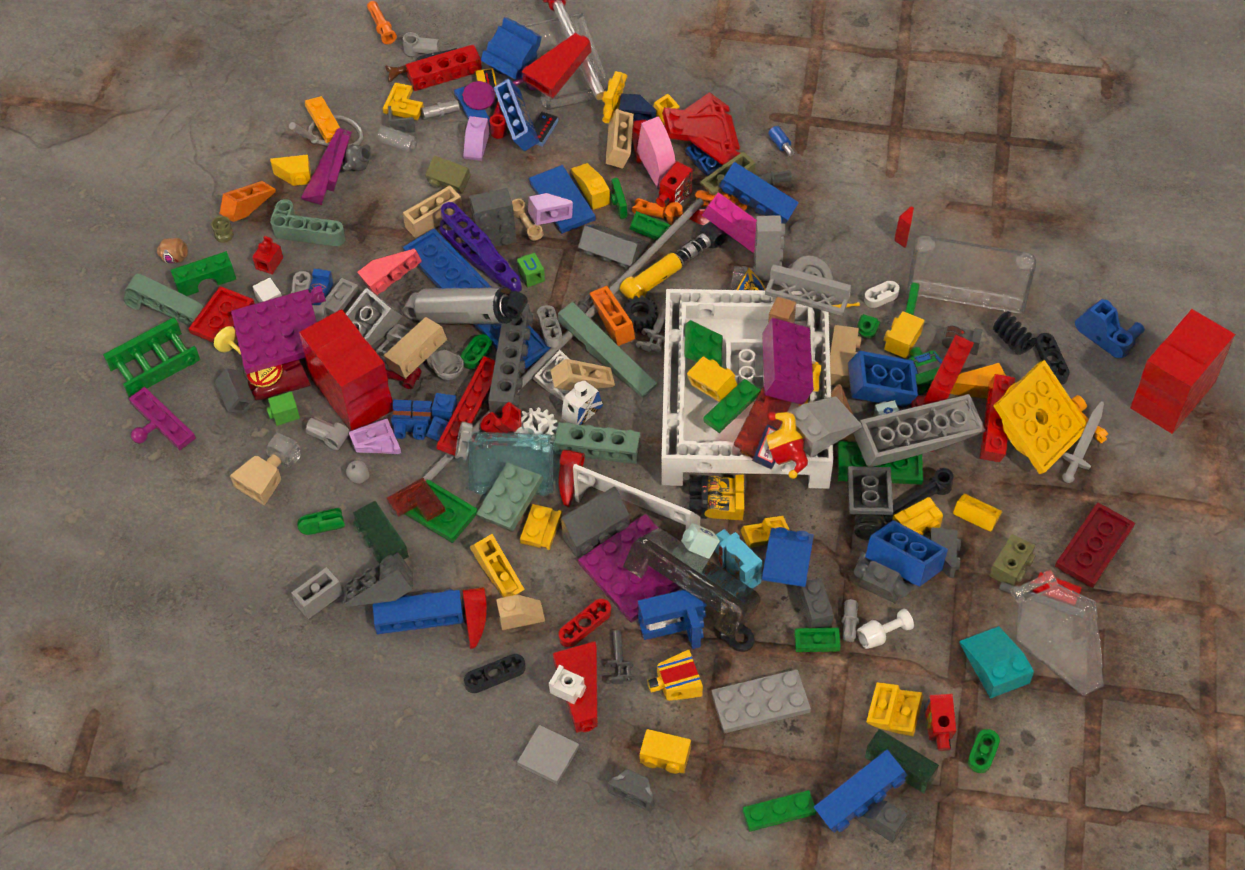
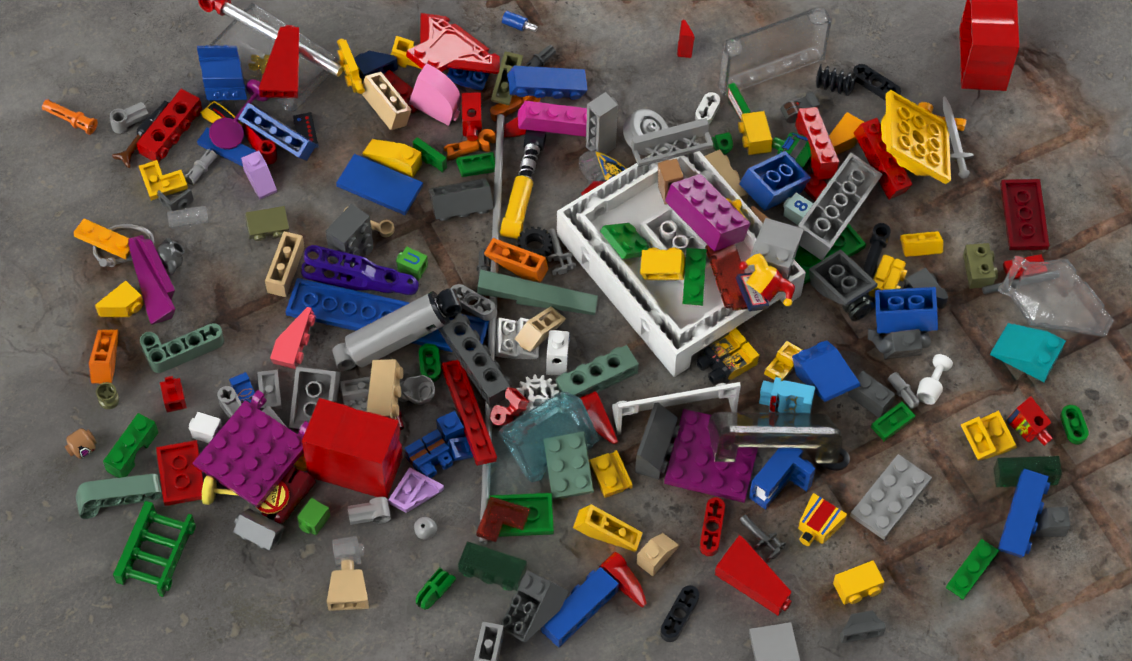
camera: 40 degrees left, 5 degrees up
(160, 418) = (213, 596): magenta plate -> none
(464, 436) = (498, 444): light grey piece -> none
(549, 208) = (383, 200): lavender slope -> none
(570, 691) = (750, 588): white brick -> none
(700, 540) = (754, 401): light aqua brick -> none
(1102, 326) = (894, 33): blue piece -> none

